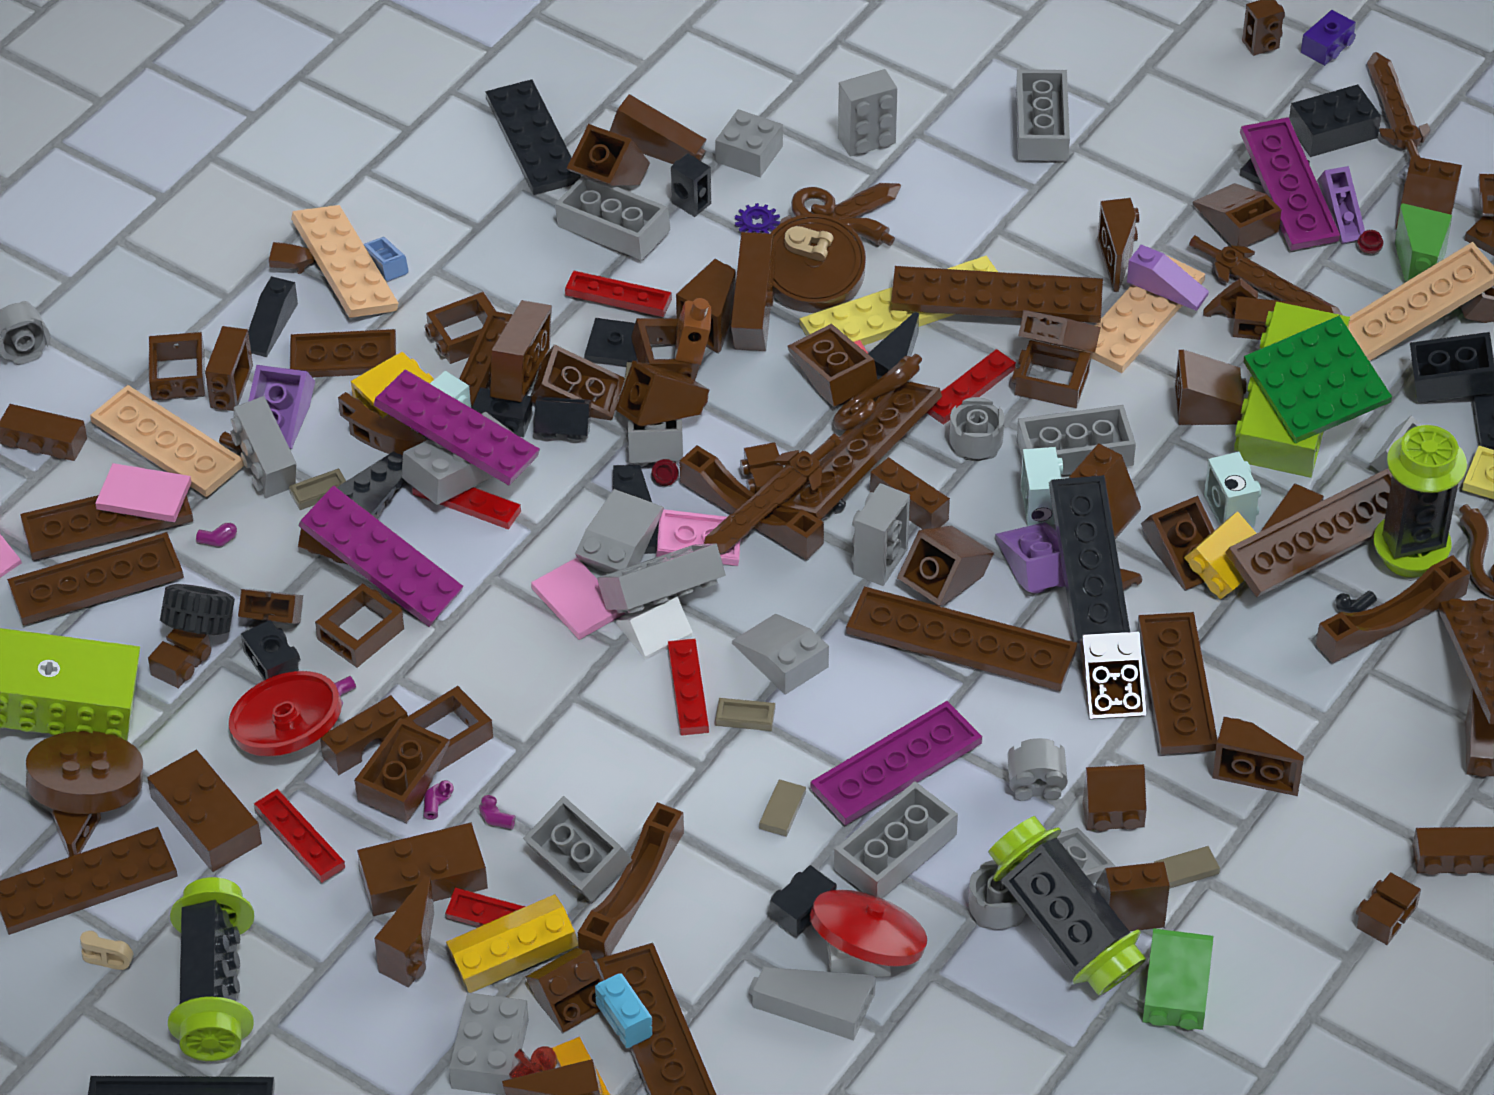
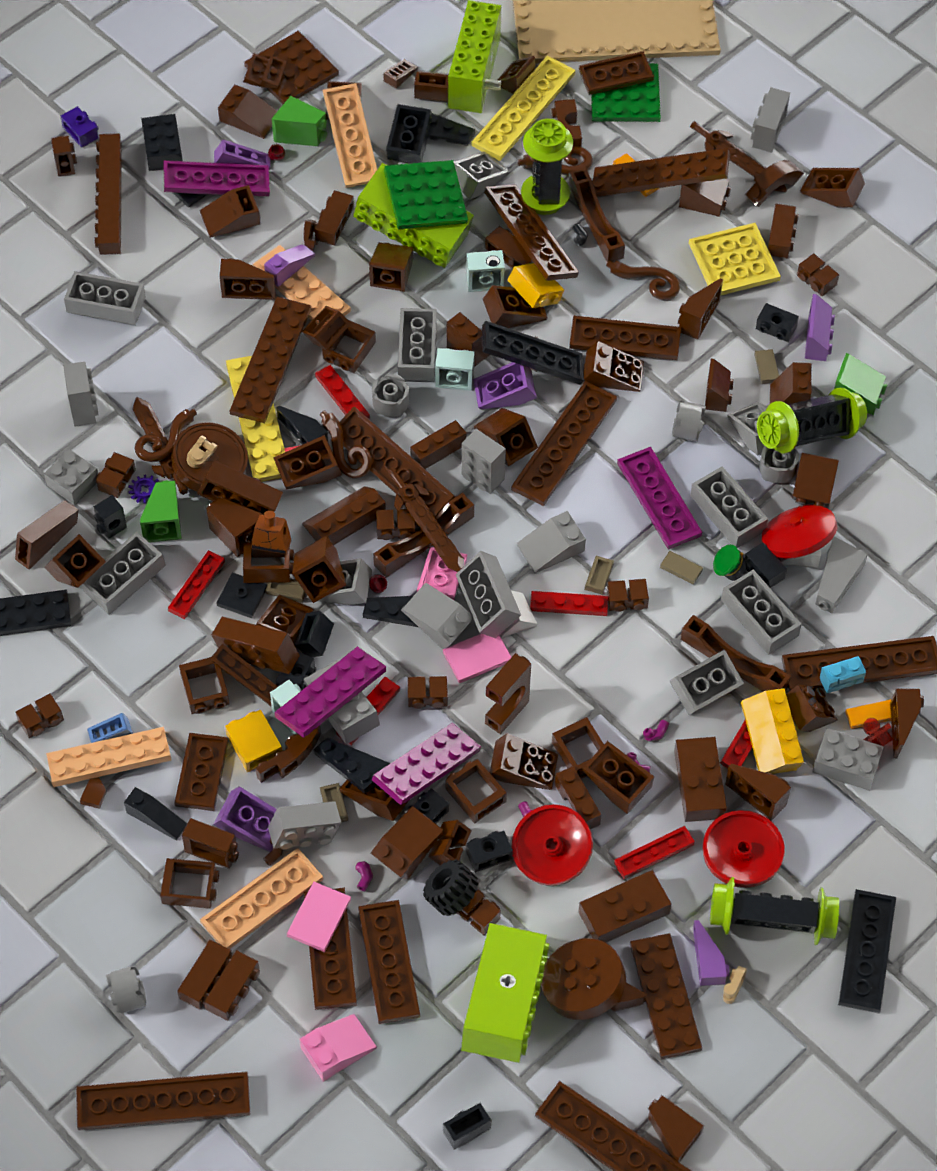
camera: 80 degrees left, 10 degrees up
(55, 399) = (204, 974): none -> reddish brown brick
(140, 916) = (710, 960): none -> medium lavender slope
(257, 558) = (407, 843): none -> reddish brown slope
(314, 930) = (744, 848): none -> red dish
(317, 579) = (431, 805): none -> black brick
(391, 193) = (49, 712): none -> reddish brown piece
(412, 666) = (523, 763): none -> reddish brown slope
(503, 550) = (417, 692): none -> reddish brown piece
(509, 596) = (509, 691): none -> reddish brown arch
(710, 231) = (161, 515): none -> bright green slope
(714, 750) = (637, 595): none -> reddish brown piece
(717, 904) = (761, 612): none -> light grey brick
(757, 178) = (116, 470): none -> reddish brown piece
(761, 418) = (346, 515): none -> reddish brown slope
(797, 856) = (729, 563): none -> green piece
(981, 946) = (815, 480): none -> reddish brown slope
(1225, 88) = (109, 194): none -> reddish brown brick
(1235, 261) = (276, 227): reddish brown sword -> none
(1271, 866) = (777, 322): none -> black brick
(1271, 913) = (819, 330): none -> medium lavender slope
(1304, 664) = (627, 272): none -> reddish brown plant
(1378, 797) = (736, 257): none -> light yellow plate
(1403, 127) = (184, 110): reddish brown sword -> none

